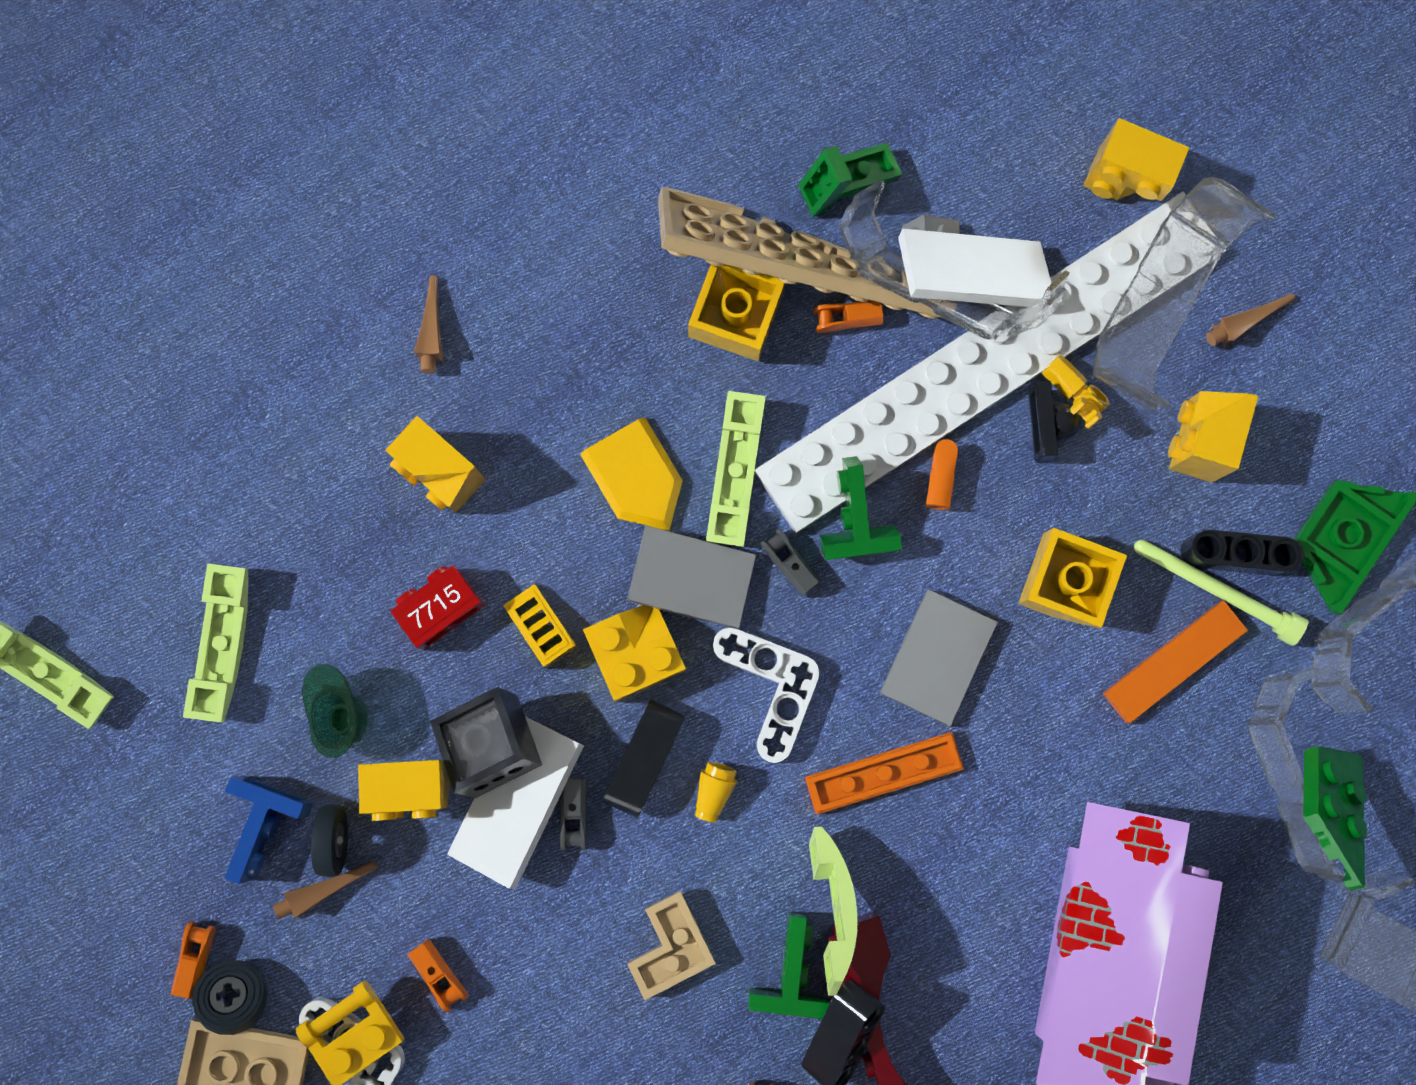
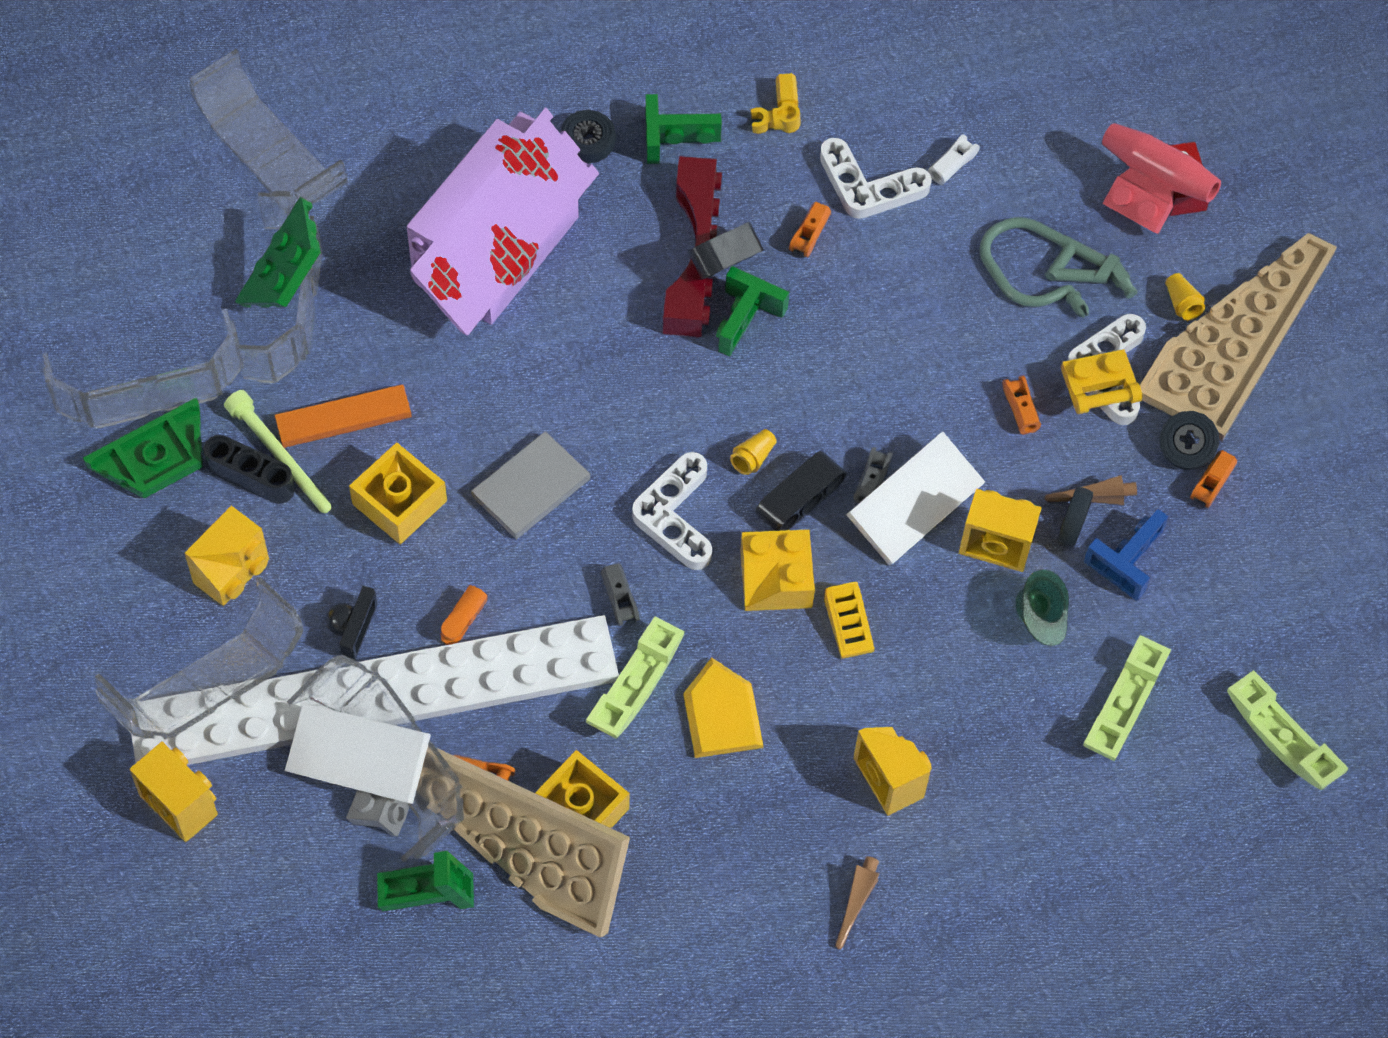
camera: 160 degrees left, 20 degrees down
(436, 607) = (930, 662): red brick -> none
(485, 743) = (924, 536): piece -> none
(681, 950) = (828, 351): tan plate -> none
(691, 577) = (708, 609): light grey tile -> none
(829, 864) = (708, 287): yellowish green slope -> none
(860, 538) = (554, 590): green bracket -> none
(883, 773) = (613, 420): orange tile -> none
(1087, 401) = (314, 625): yellow bar -> none
(1236, 325) = (149, 644): medium nougat piece -> none

